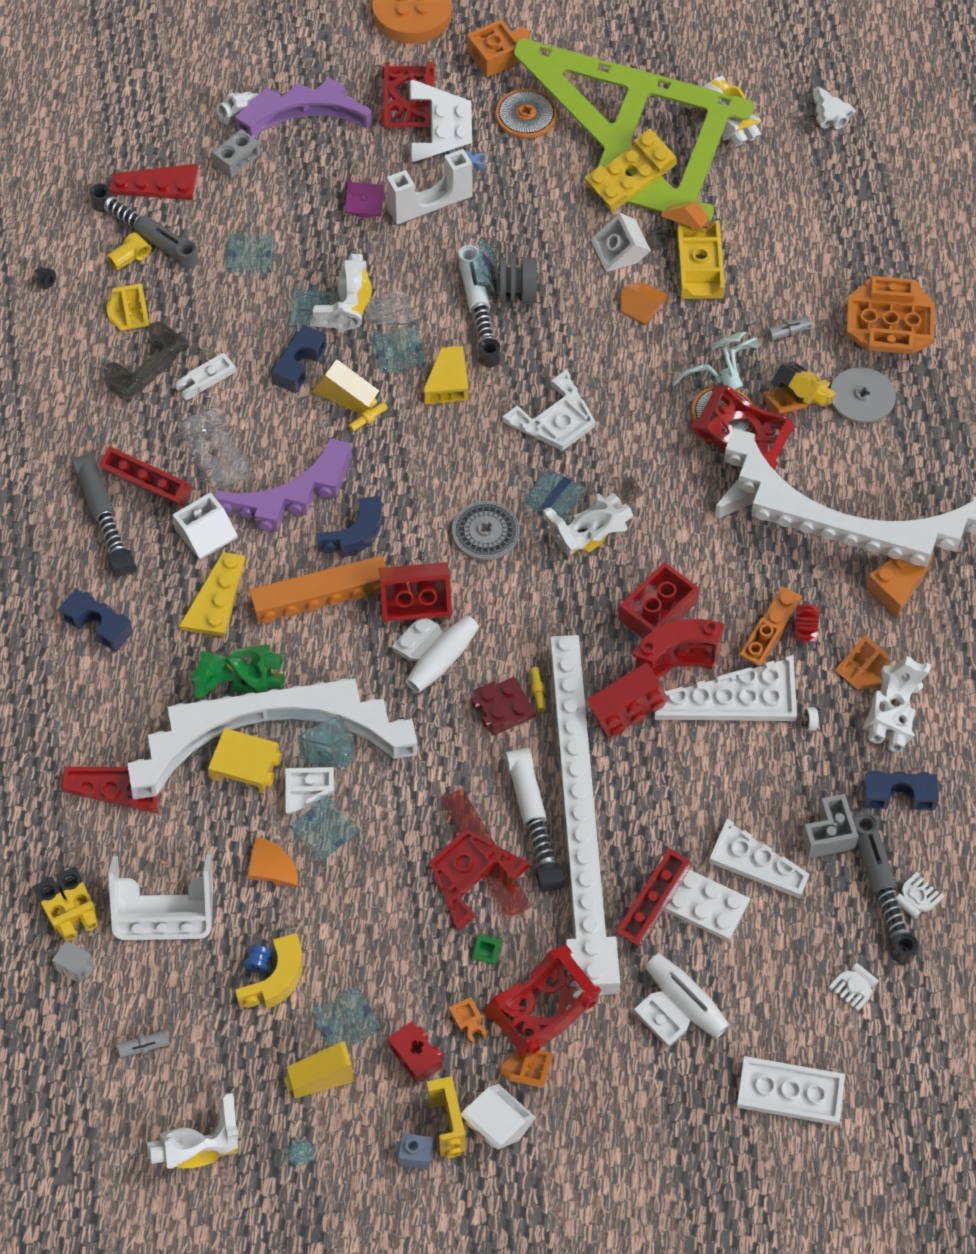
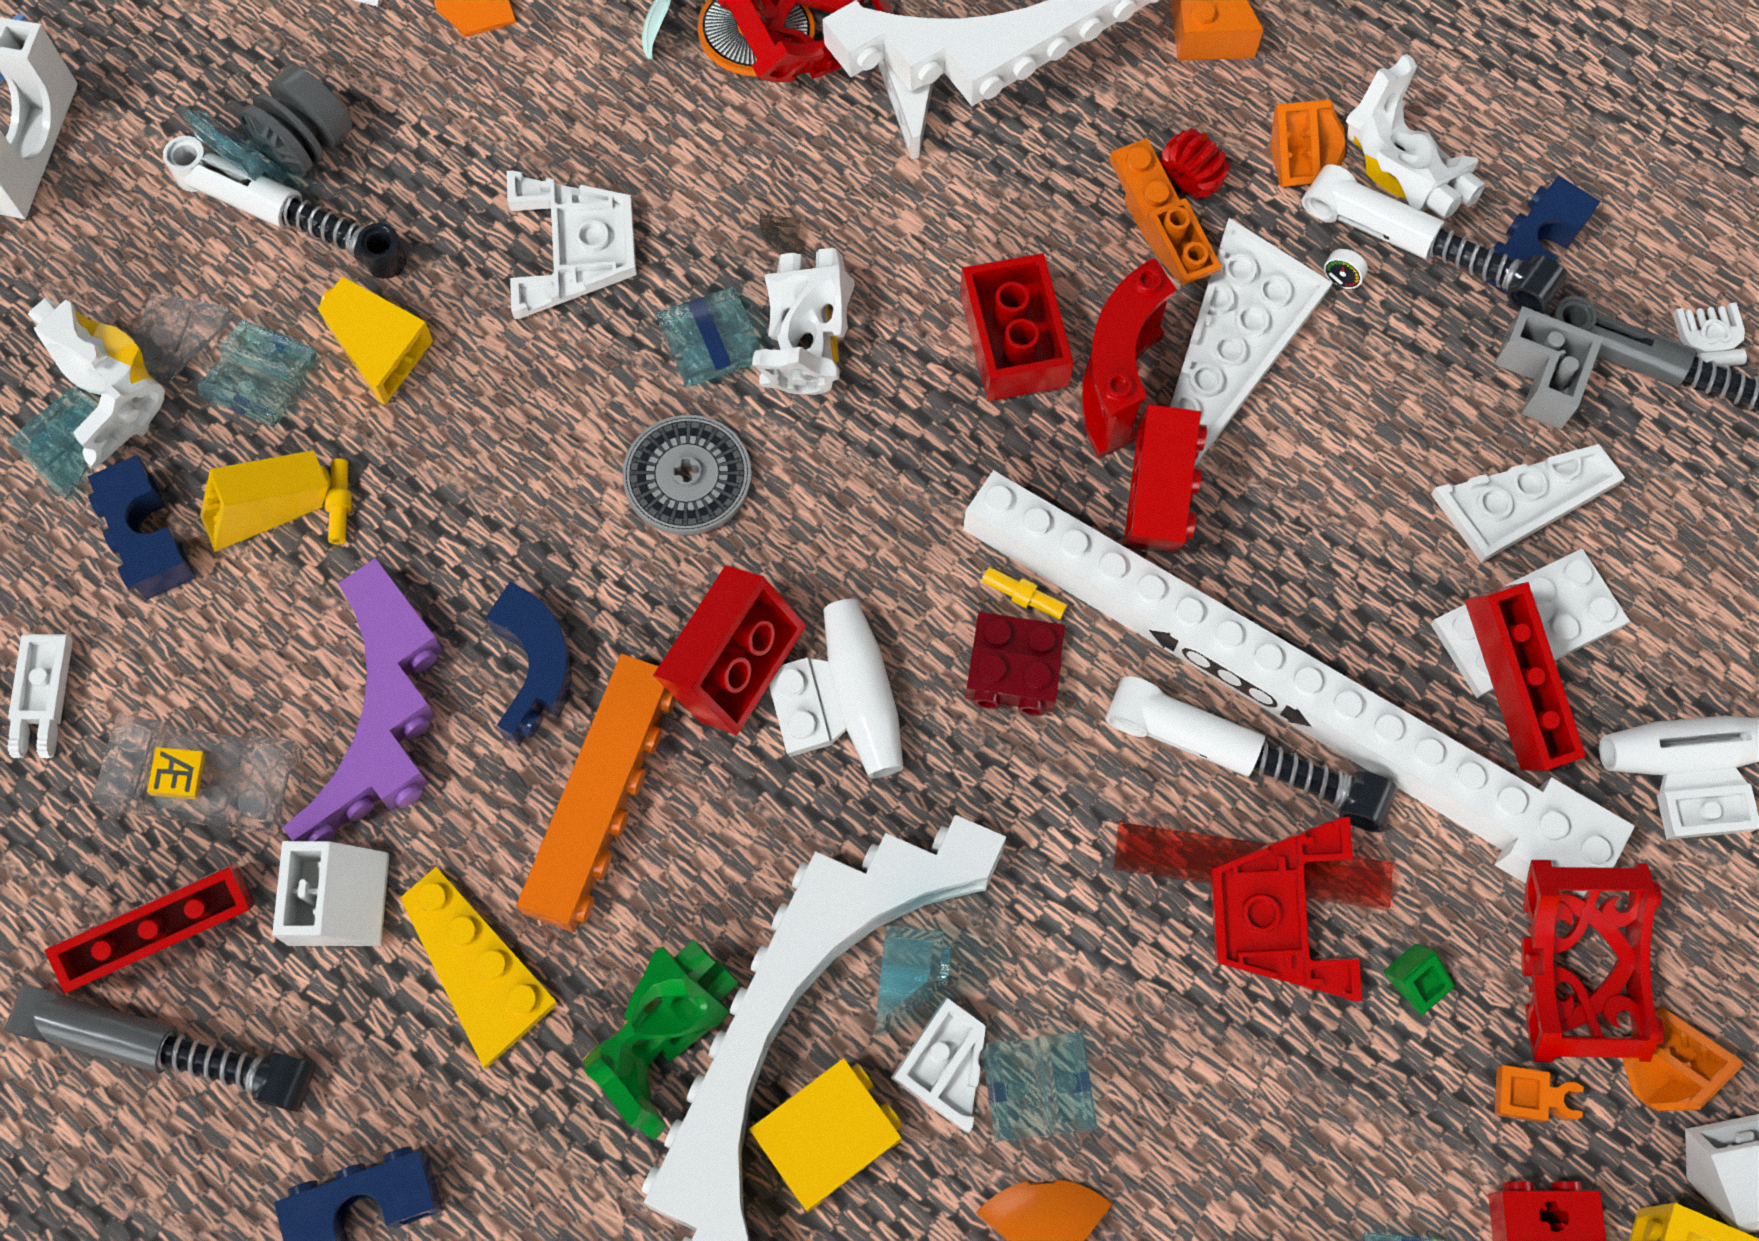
camera: 55 degrees left, 10 degrees up
(210, 441) = (176, 773): none -> yellow tile
(845, 694) = (1339, 197): none -> piece

